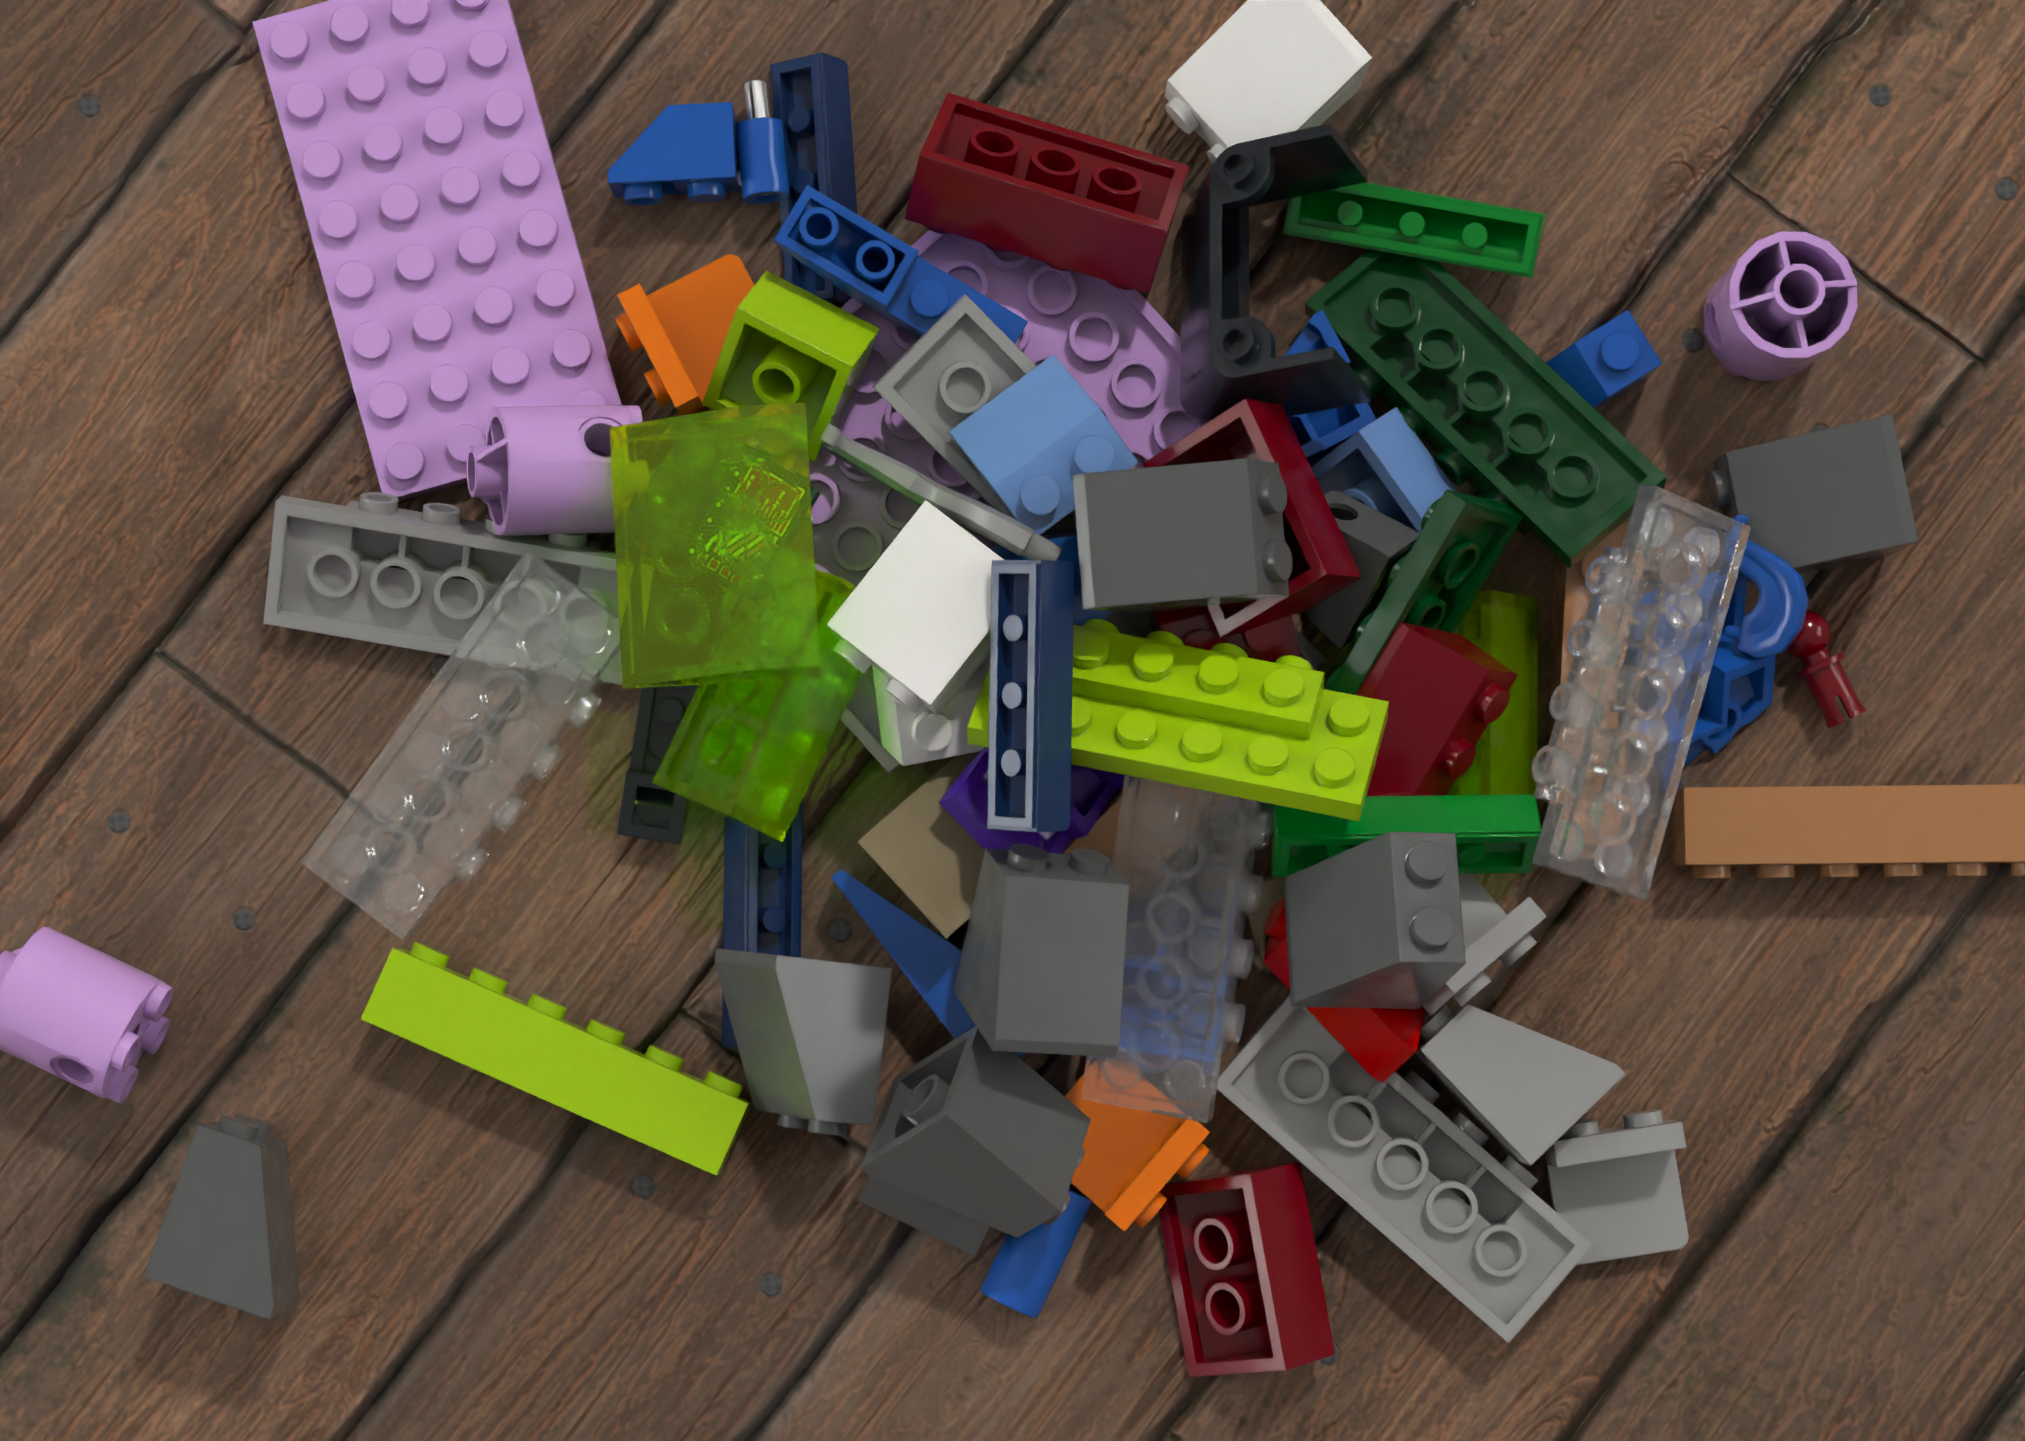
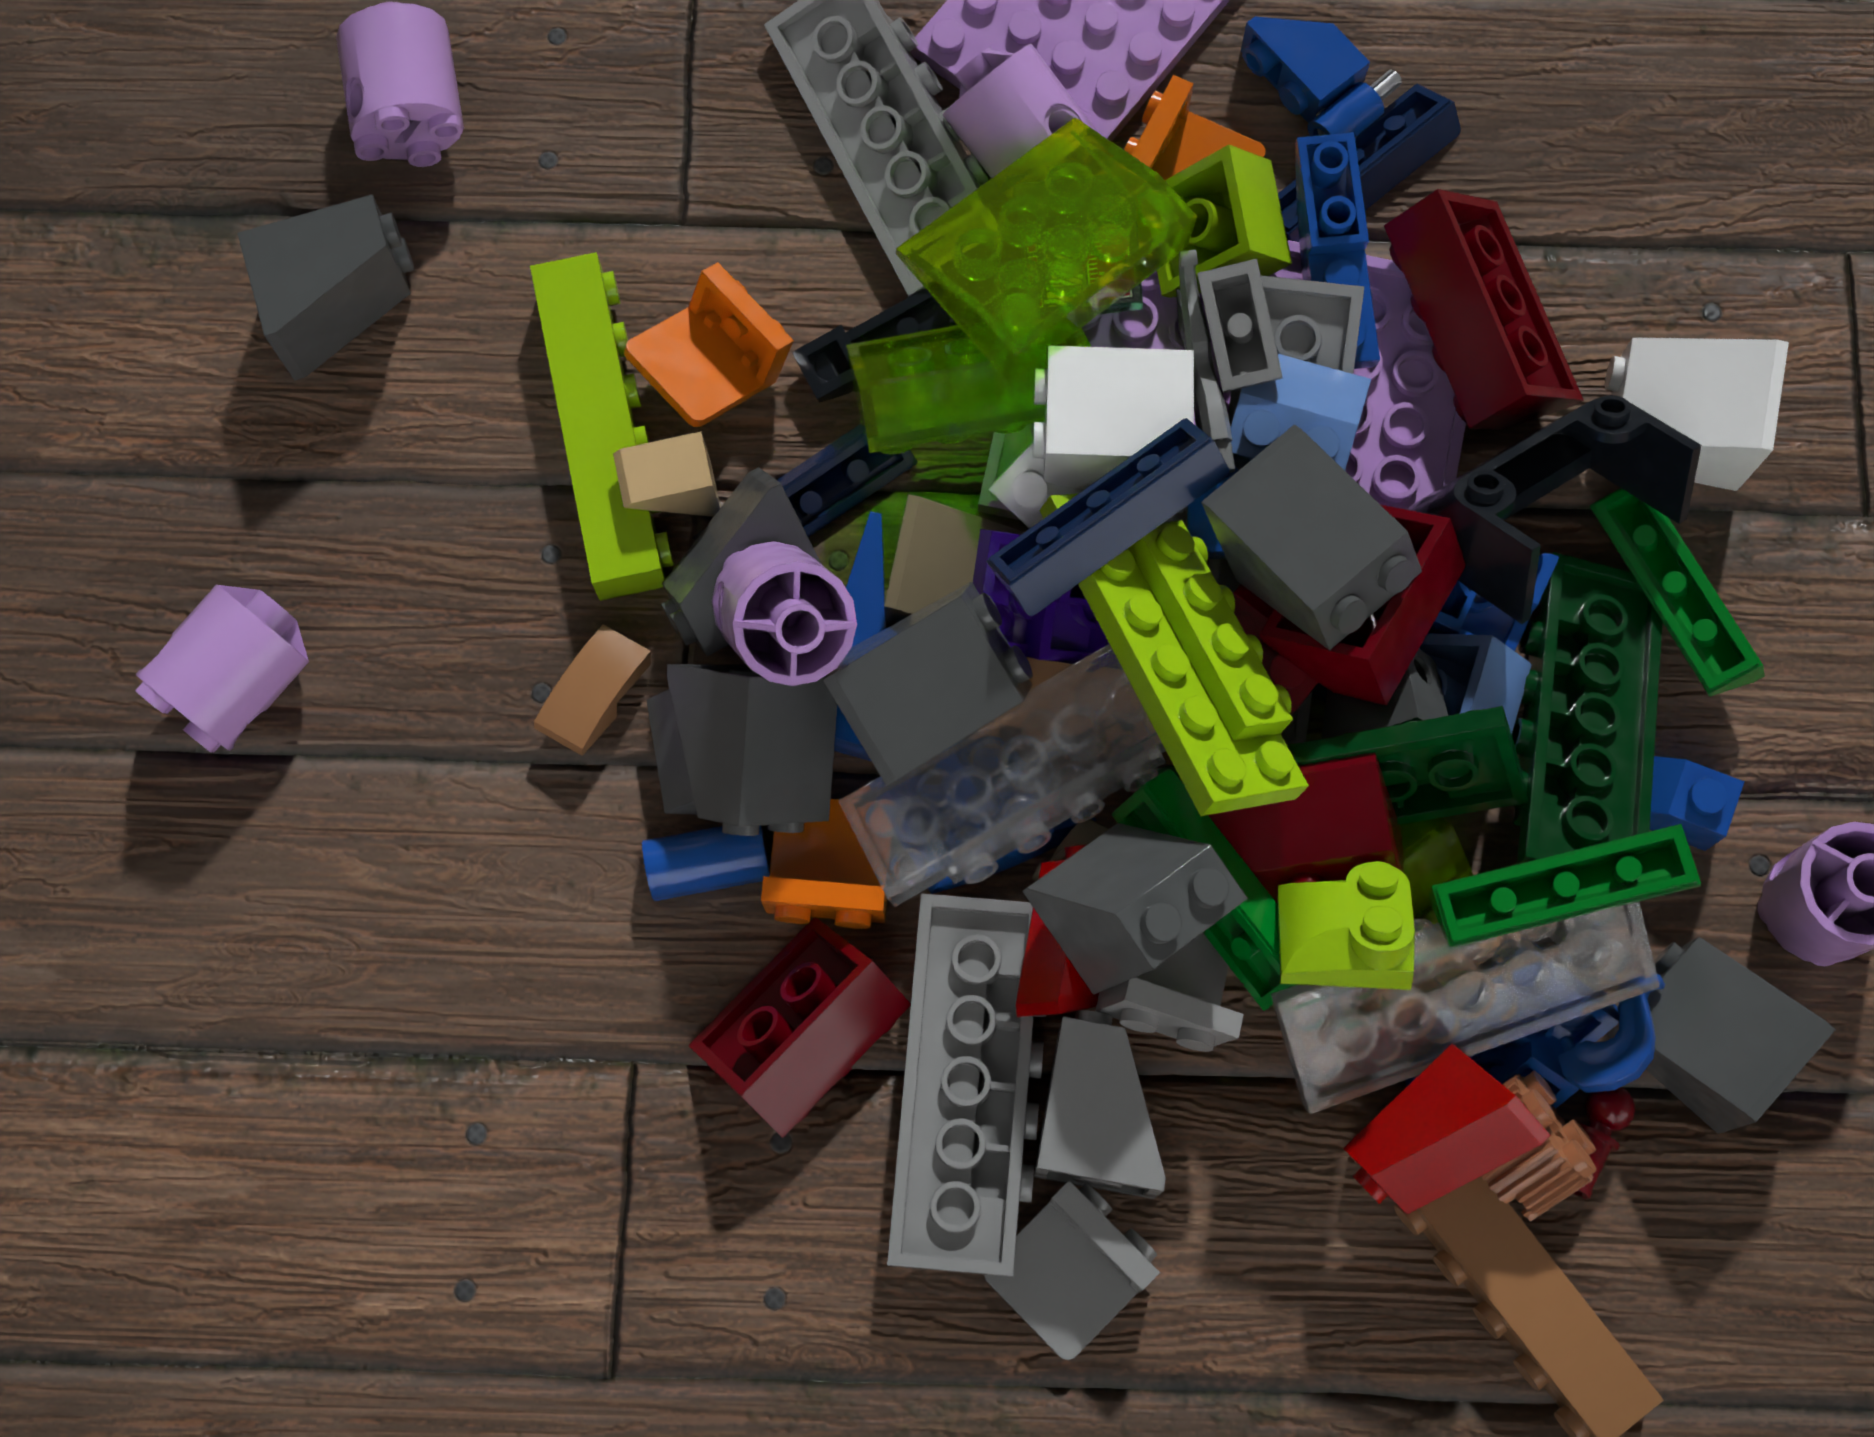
camera: 60 degrees right, 10 degrees down
(470, 748) = (776, 206): clear plate -> none
(564, 910) = (712, 350): none -> orange bracket
(665, 1038) = (668, 476): none -> tan slope
(809, 1240) = (590, 688): none -> medium nougat slope
(902, 1040) = (784, 613): none -> lavender cylinder
(932, 440) = (1240, 325): none -> light grey slope
(1529, 761) = (1348, 930): none -> lime slope
(1626, 553) = (1564, 886): none -> green slope
(1744, 807) = (1442, 1134): none -> red slope
(1793, 734) = (1552, 1169): none -> nougat brick

